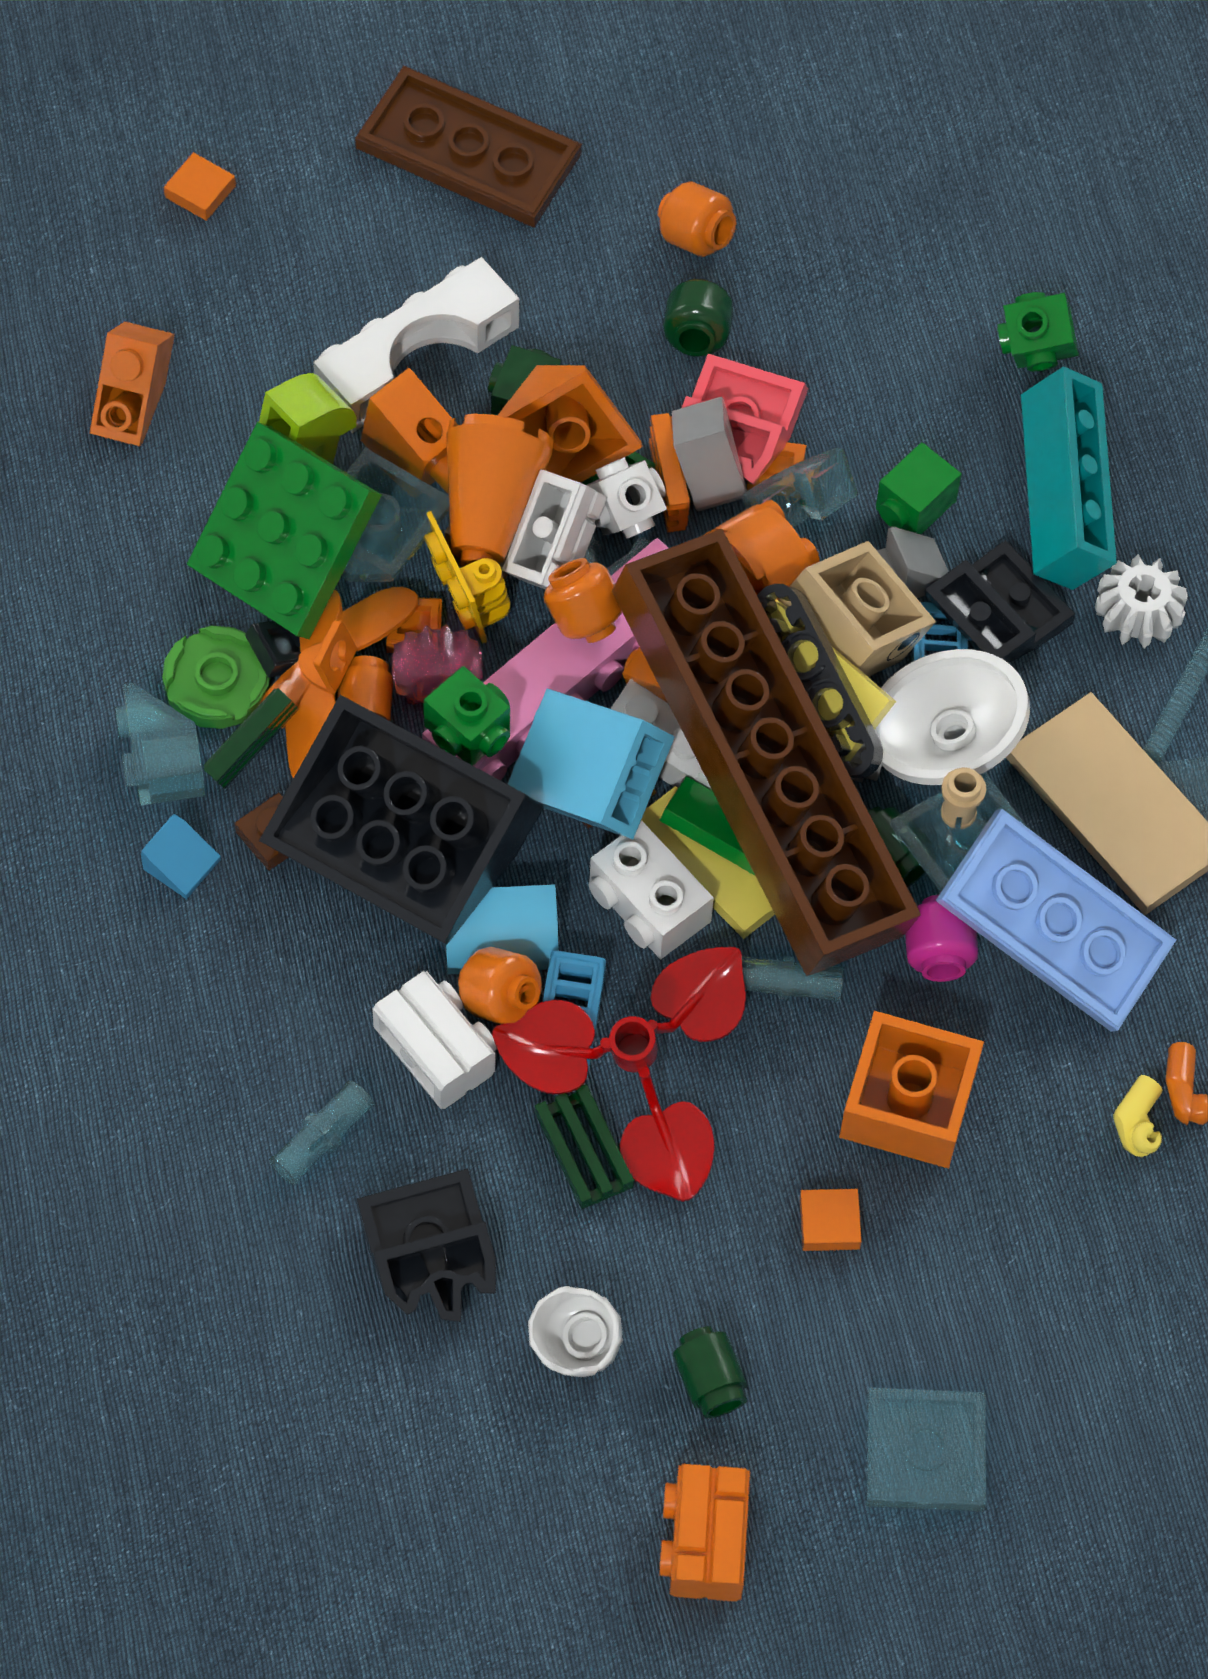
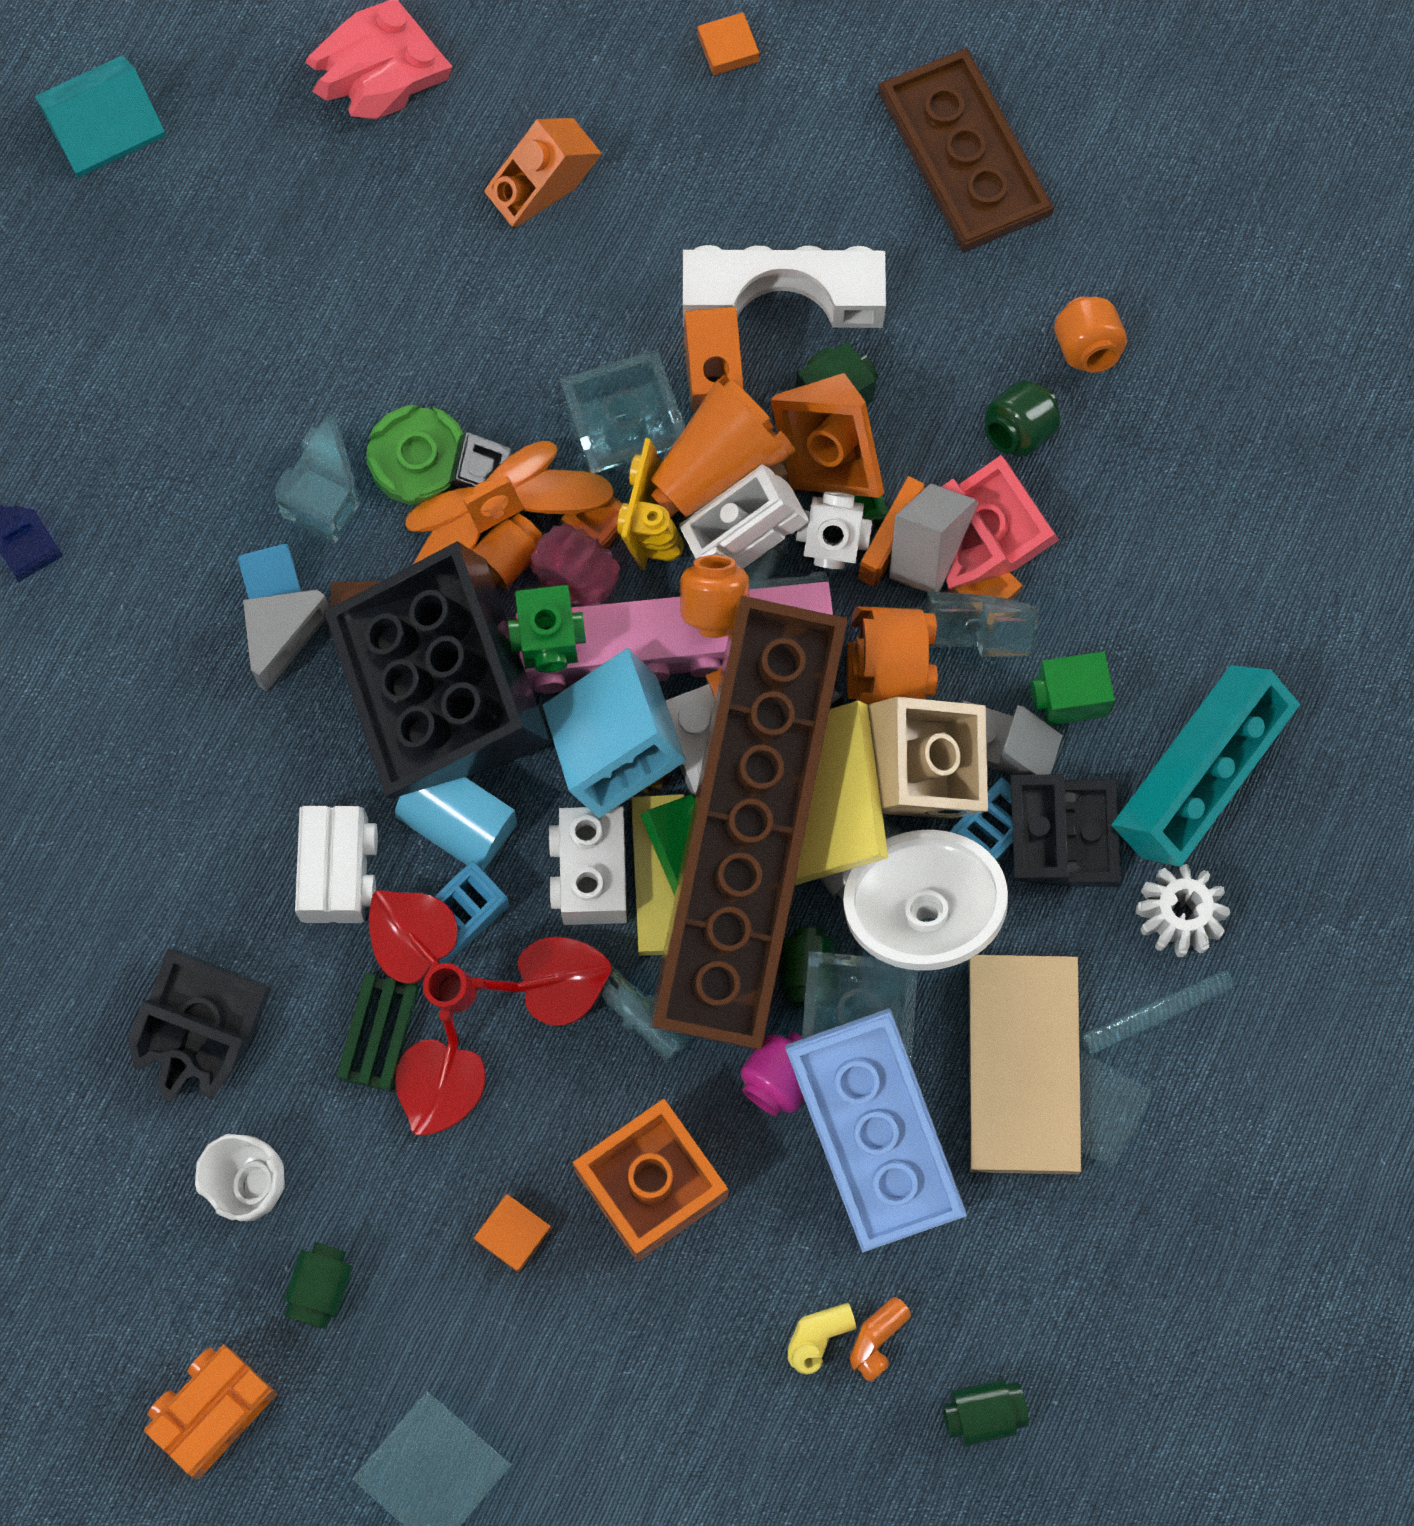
camera: 40 degrees right, 10 degrees up
(220, 889) = (280, 629): none -> light grey slope
(250, 737) = (389, 523): dark green tile -> none
(283, 530) = (541, 373): green plate -> none
(308, 414) = (634, 293): lime brick -> none
(321, 1132) = (195, 875): clear light blue pin -> none
(499, 985) = (411, 858): orange head -> none
(824, 676) = (846, 797): black beam -> none
(962, 793) = (869, 964): tan pin -> none
(1038, 331) = (1289, 622): green brick -> none

